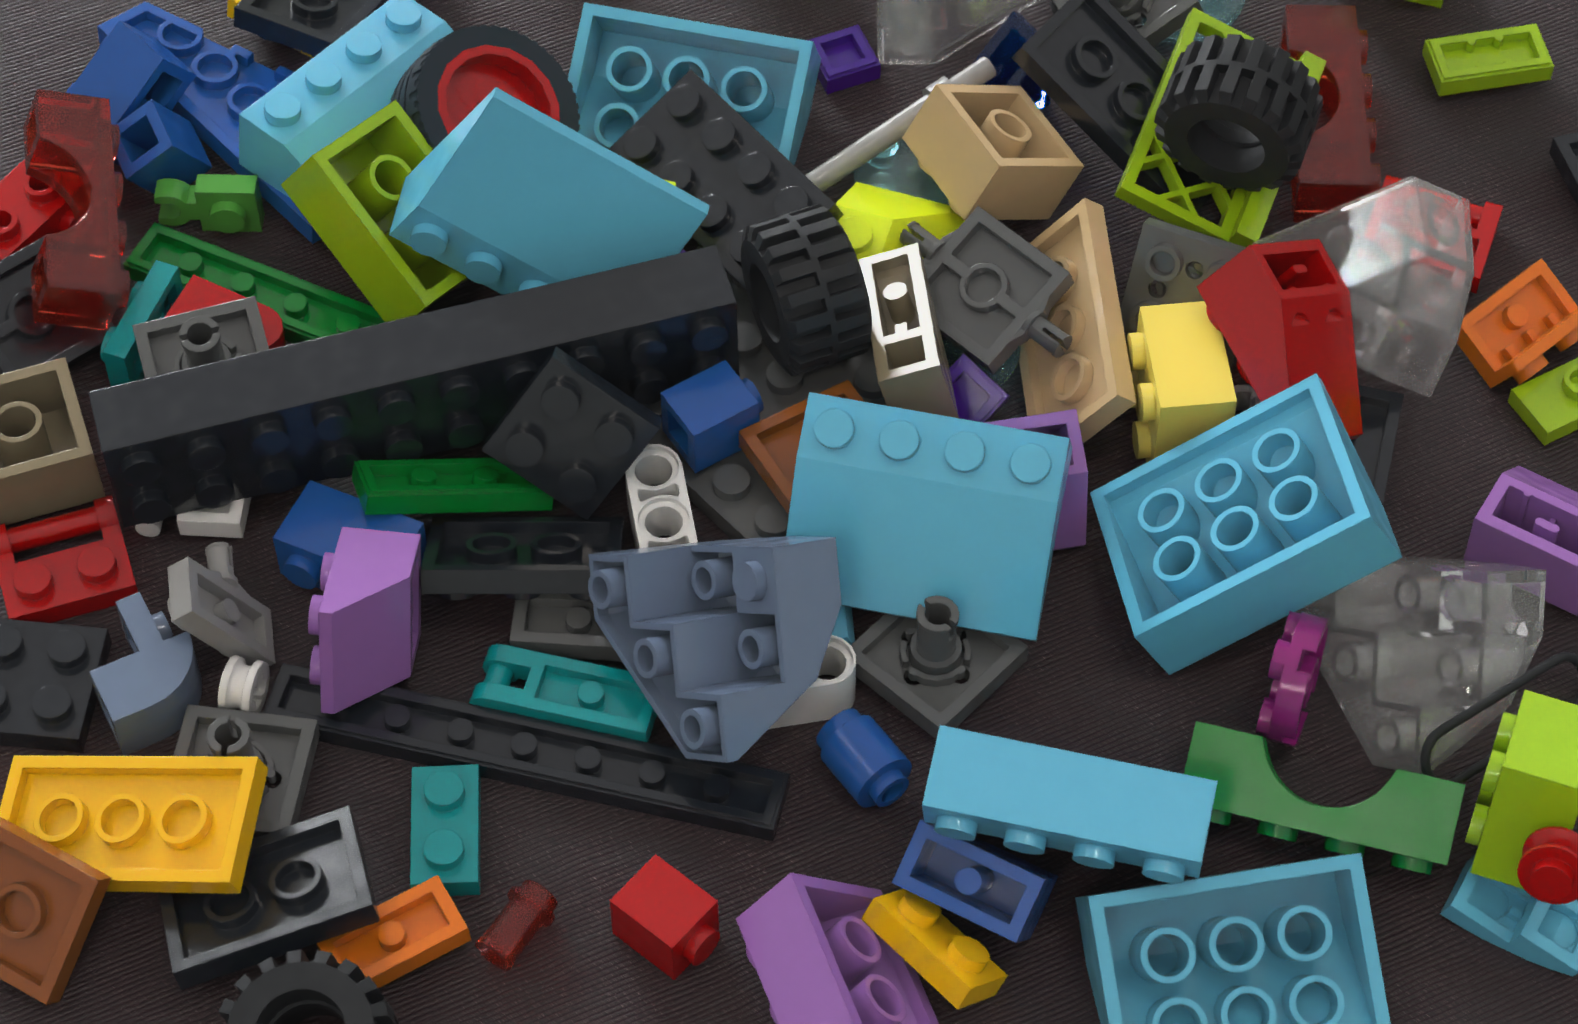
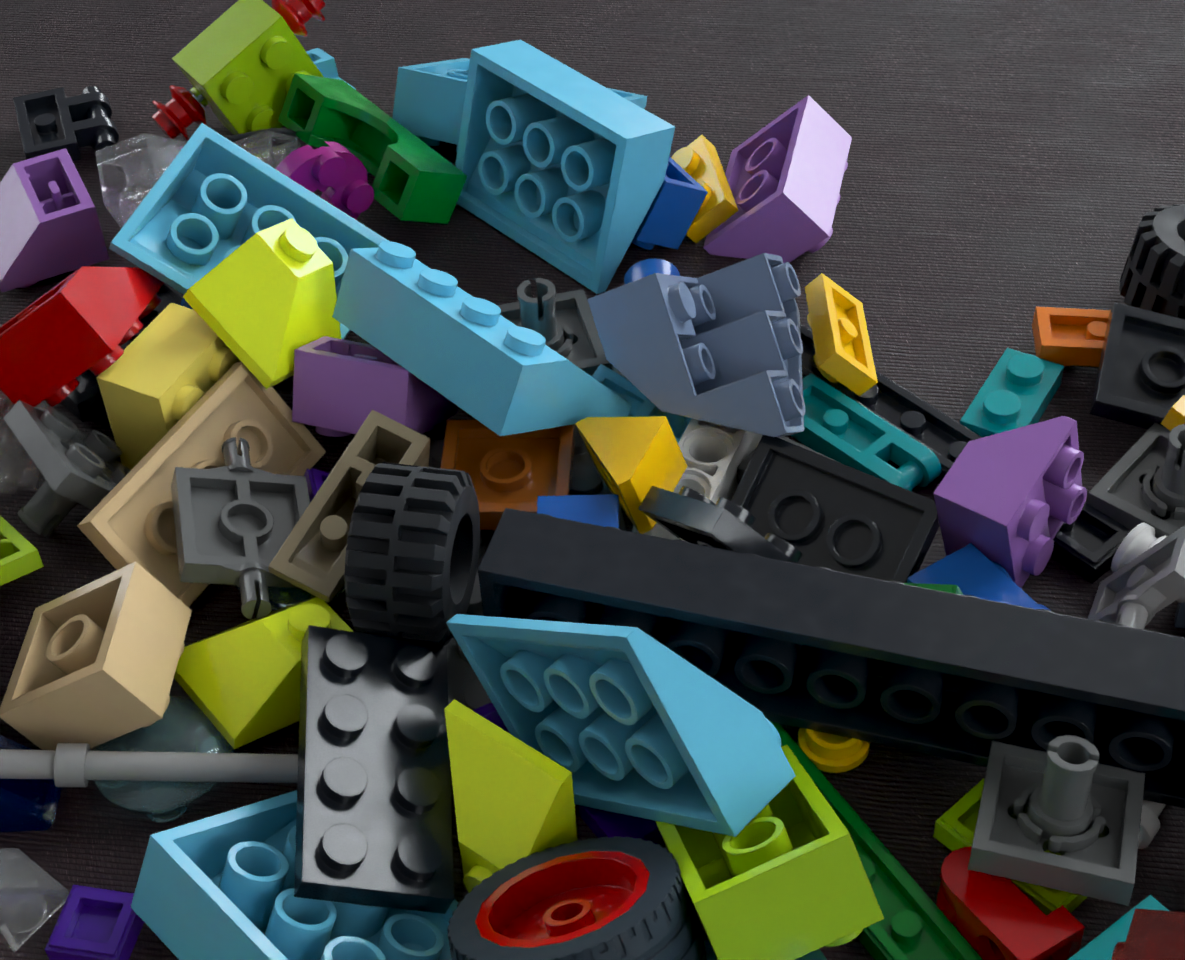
camera: 145 degrees left, 10 degrees down
(517, 924) = (978, 318): clear red pin -> none
(636, 768) = (840, 335): none -> yellow plate
(666, 918) = (878, 267): red brick -> none
(713, 485) = (632, 458): none -> yellow slope
(1144, 437) = (269, 299): none -> neon yellow slope

